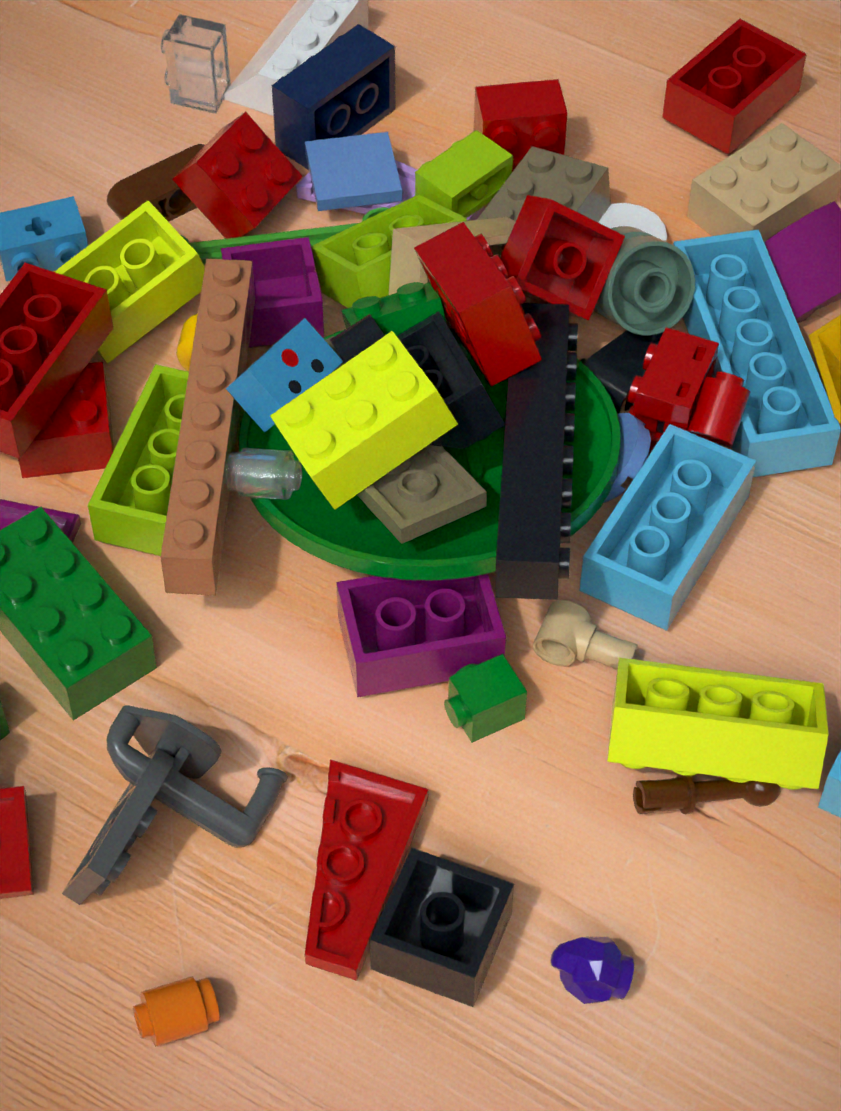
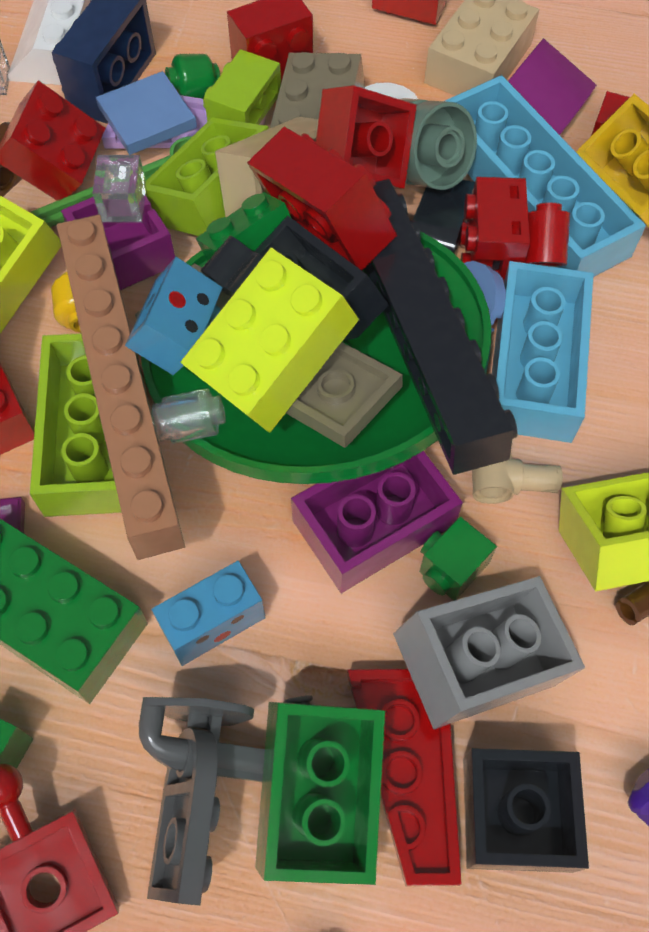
camera: 20 degrees left, 10 degrees up
(218, 669) = (209, 612): none -> dark azure brick
(253, 838) = (320, 794): none -> green brick
(286, 241) = (119, 188): none -> clear brick
(419, 141) = (192, 74): none -> green head
(470, 777) = (486, 650): none -> light grey brick

